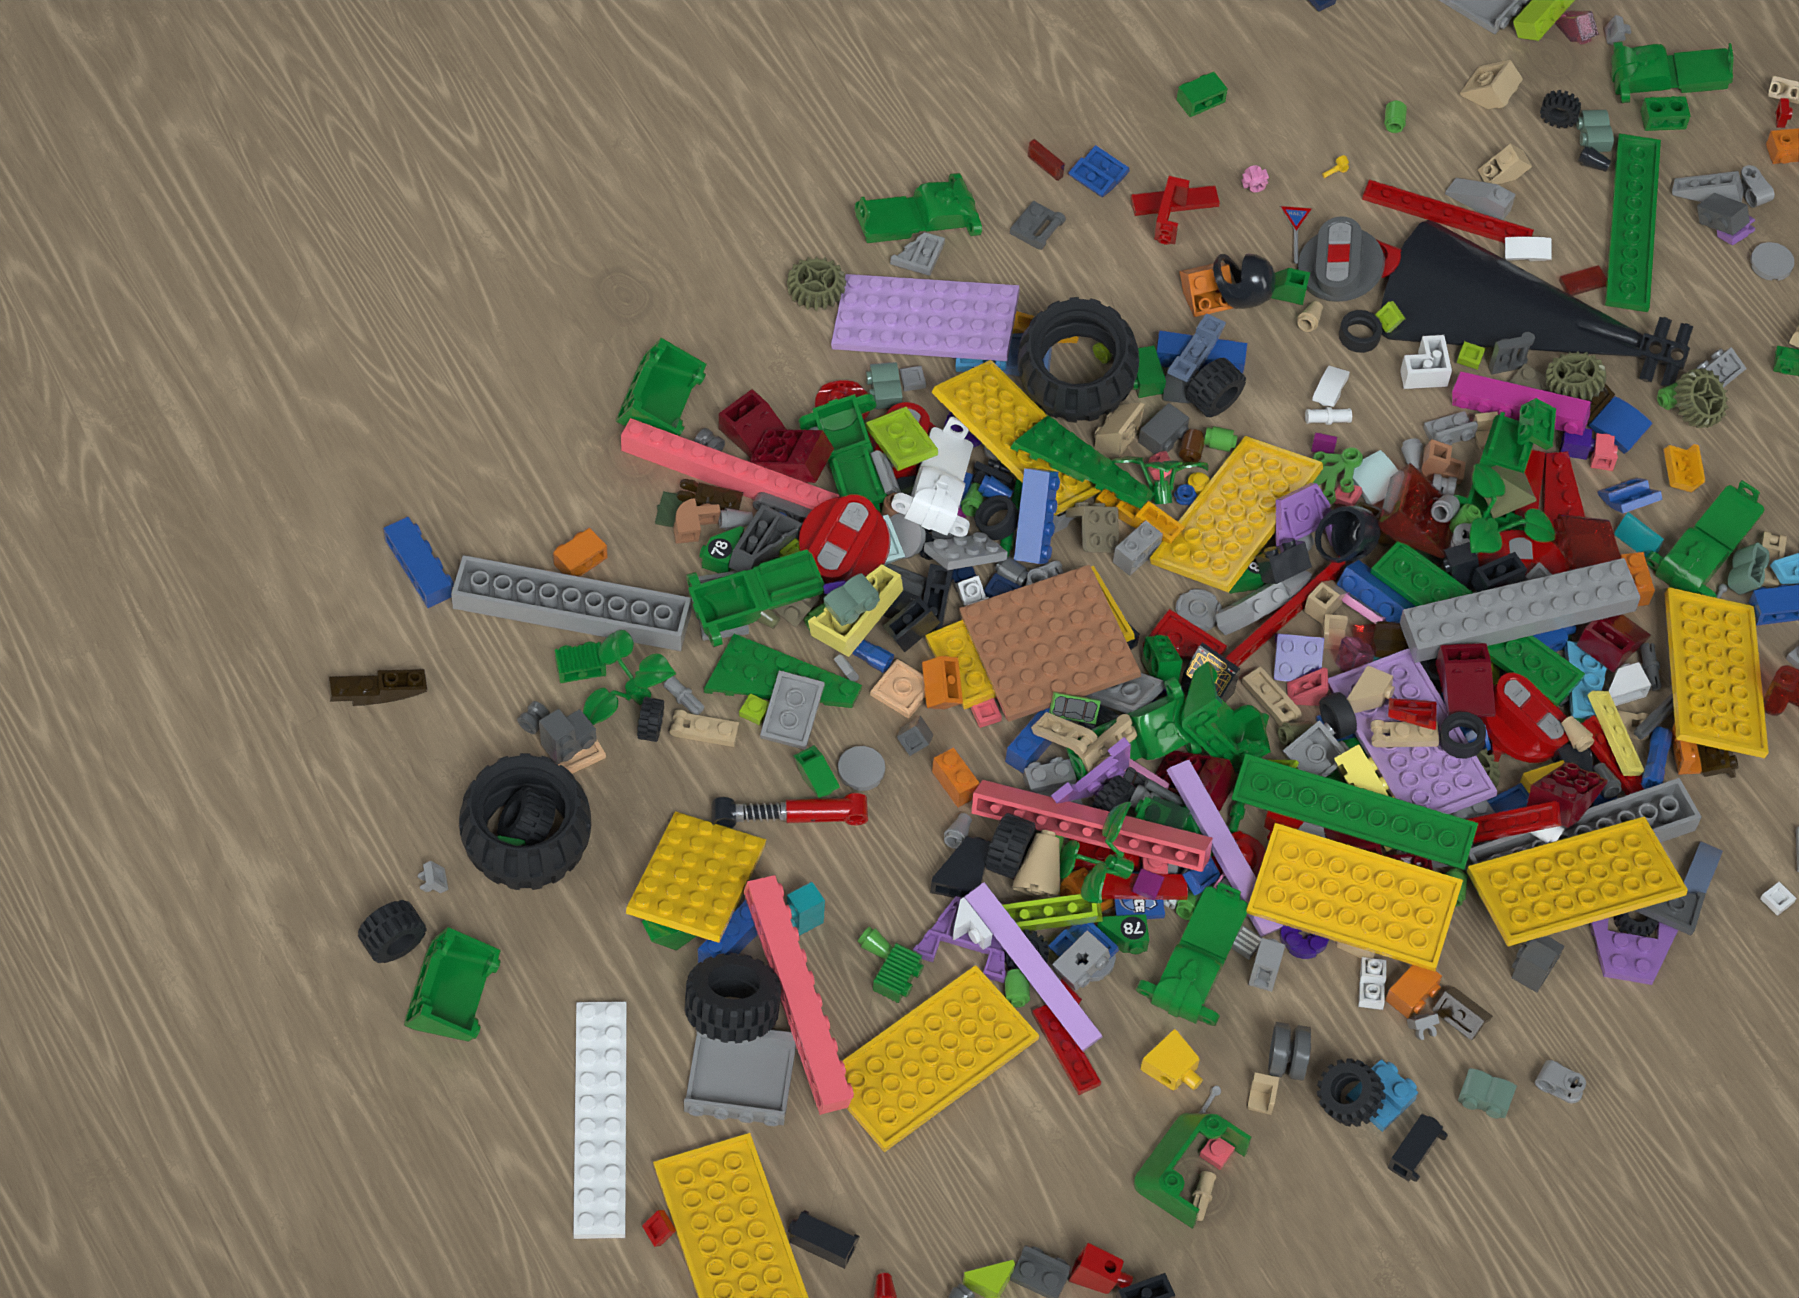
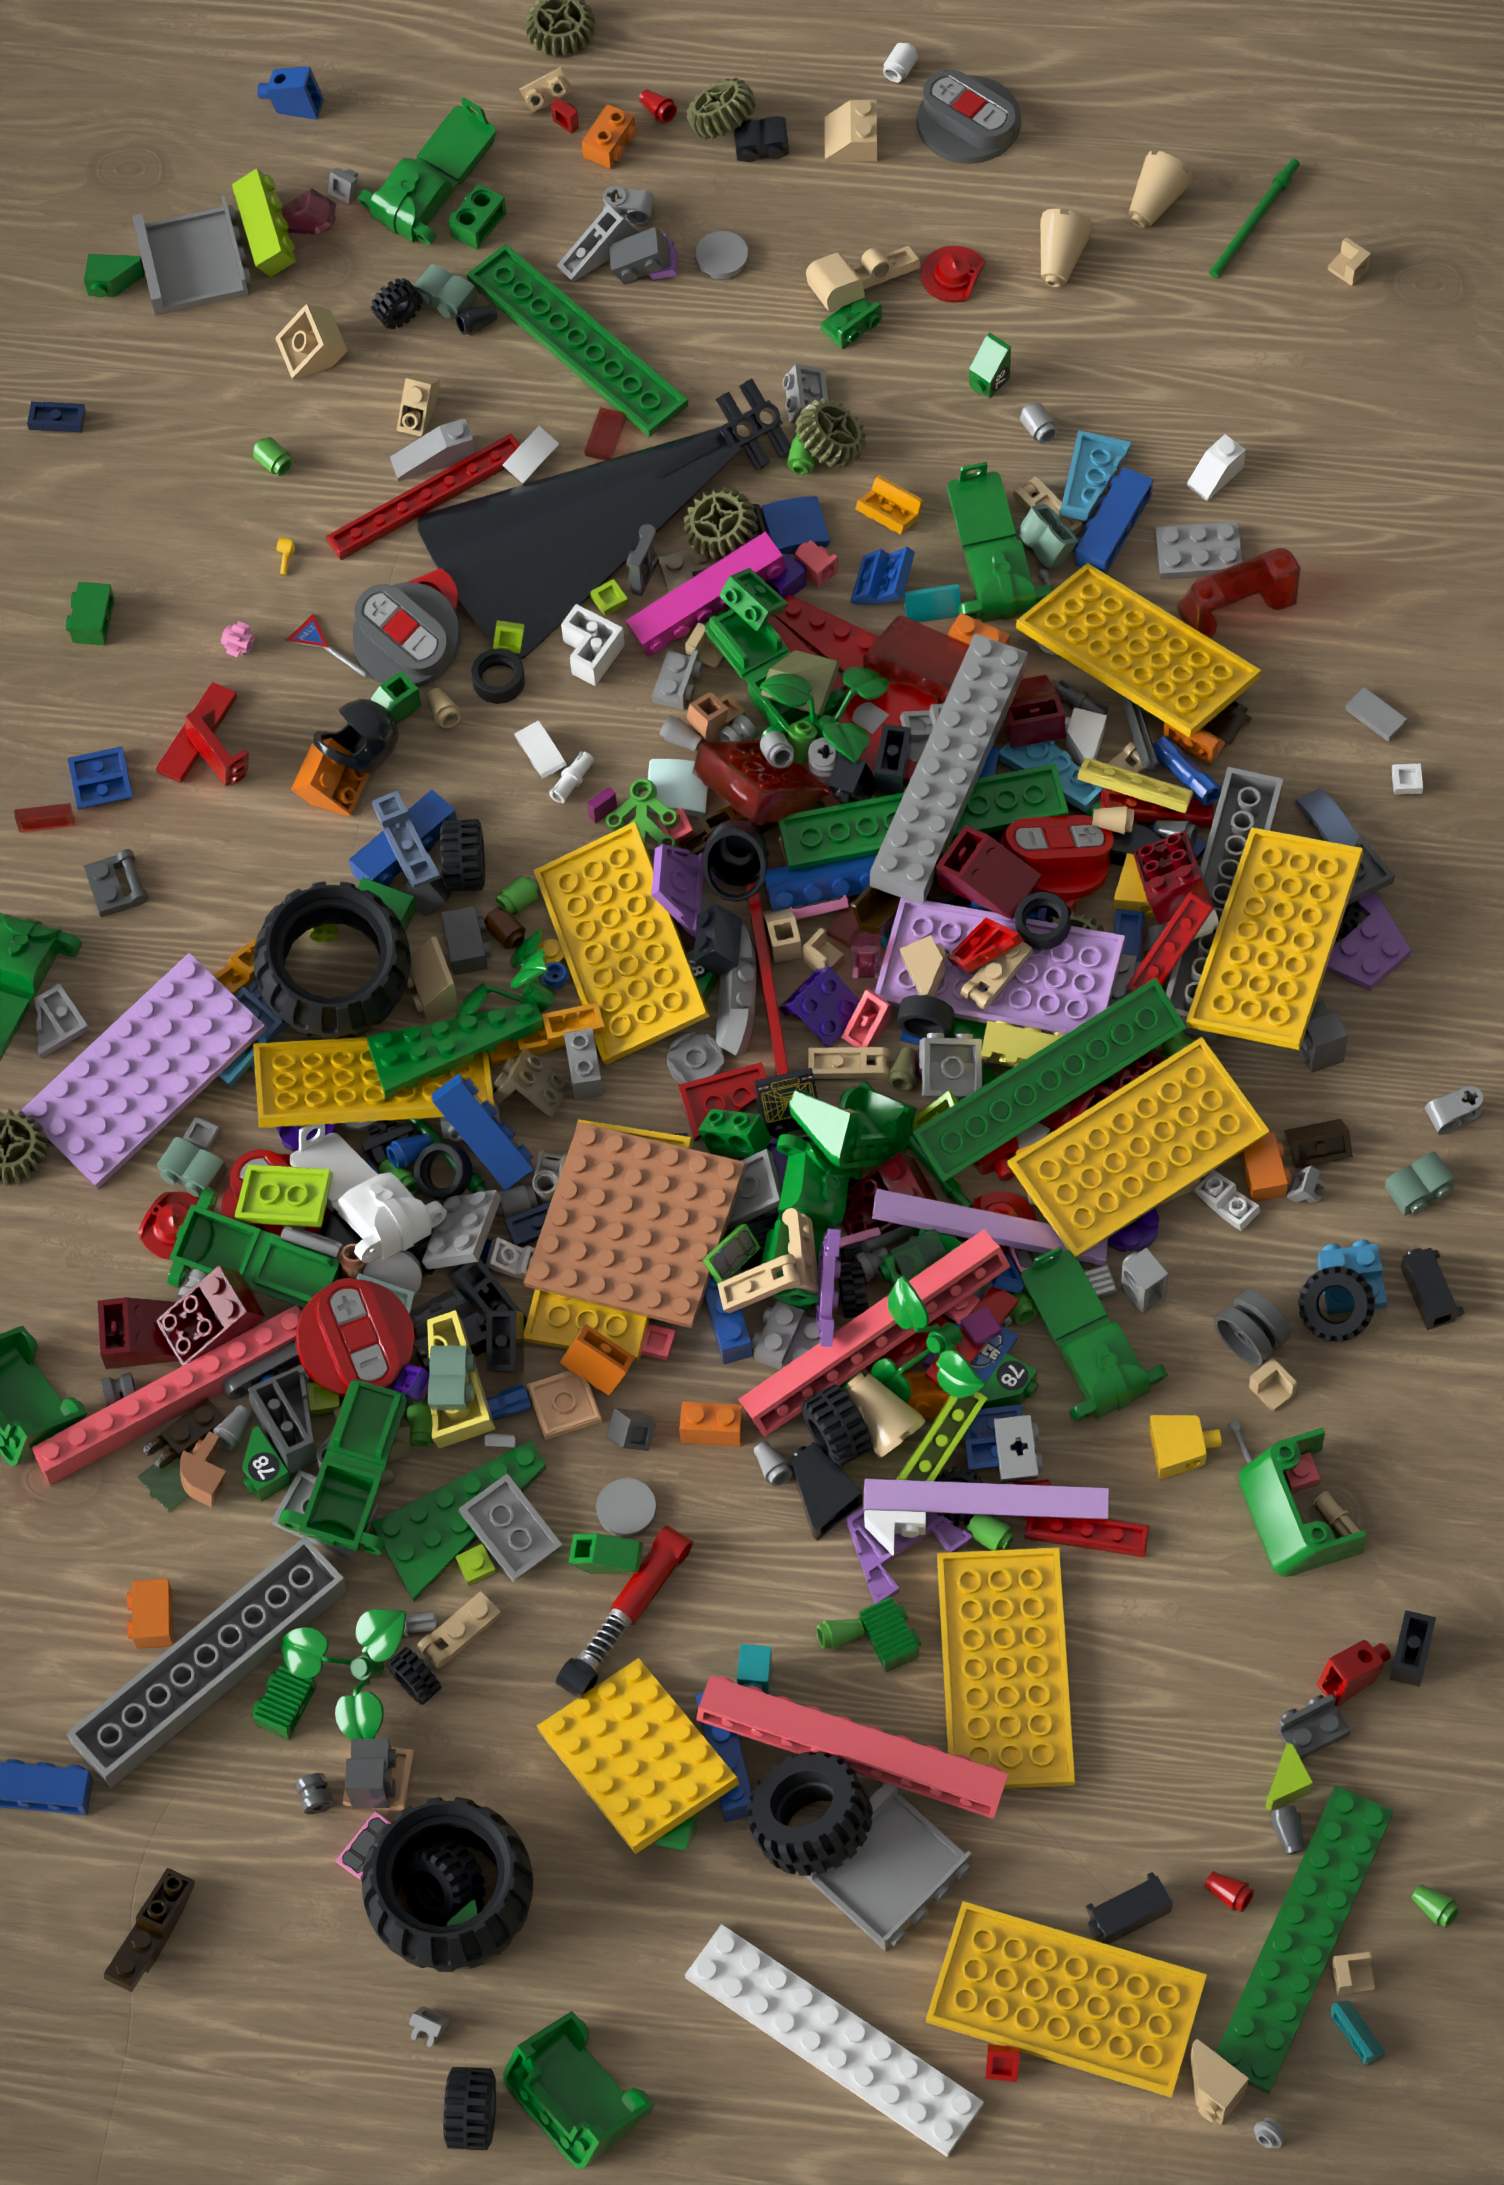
camera: 45 degrees left, 5 degrees up
(1159, 457) = (507, 970): coral beam -> none

